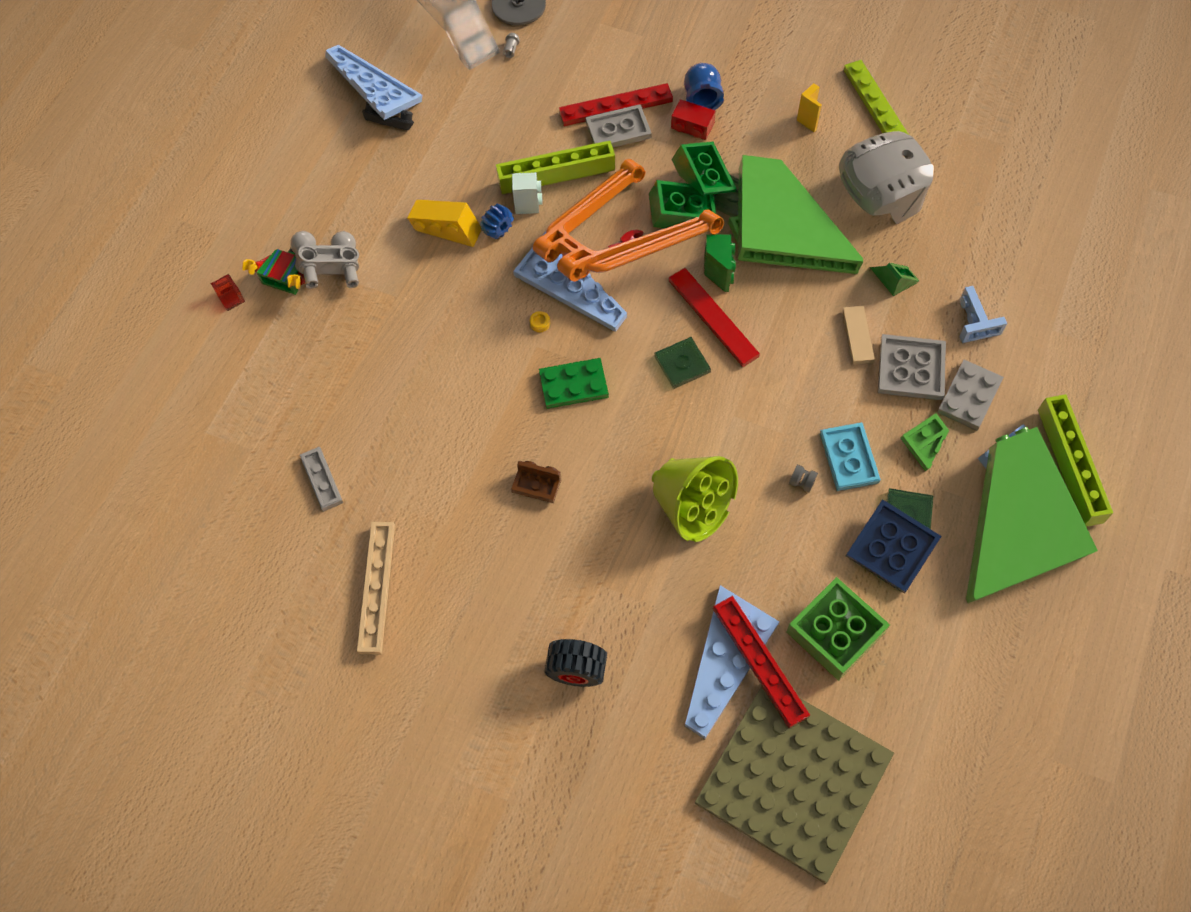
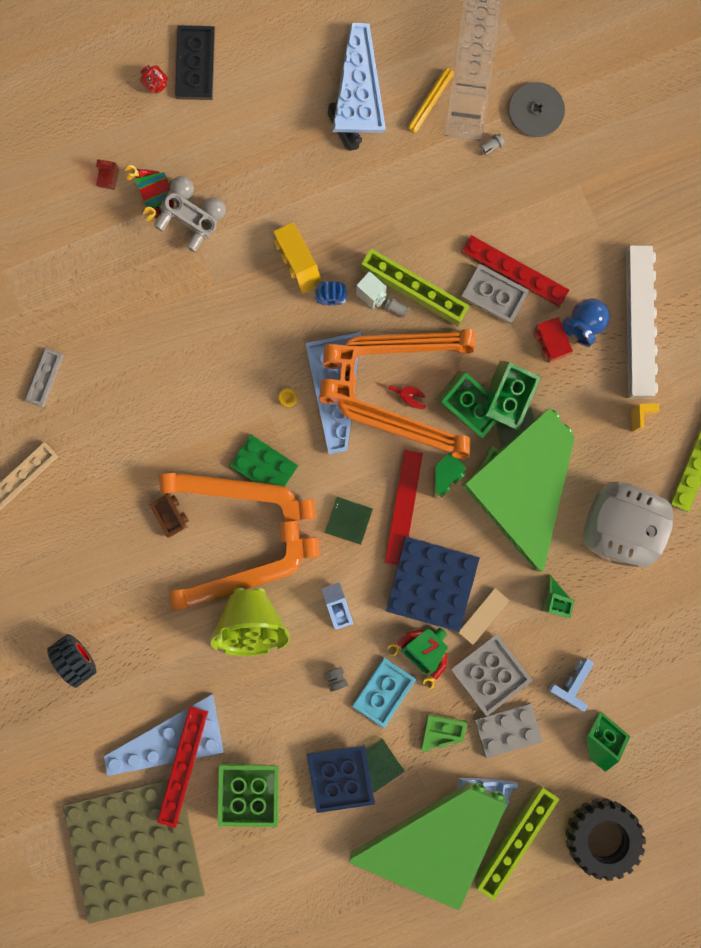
camera: 40 degrees right, 20 degrees up
(202, 201) = (153, 79): none -> red head
(225, 169) = (195, 62): none -> black tile
(435, 55) = (430, 100): none -> yellow axle
(556, 193) = (396, 307): none -> light grey pin
(636, 391) = (289, 531): none -> orange piece
(740, 61) = (640, 322): none -> white brick
(743, 425) = (337, 606): none -> light blue slope
(795, 346) = (432, 584): none -> dark blue plate
(847, 393) = (425, 651): none -> green torso
(1049, 333) = (606, 742): none -> green slope
(1143, 375) = (628, 851): none -> black tyre

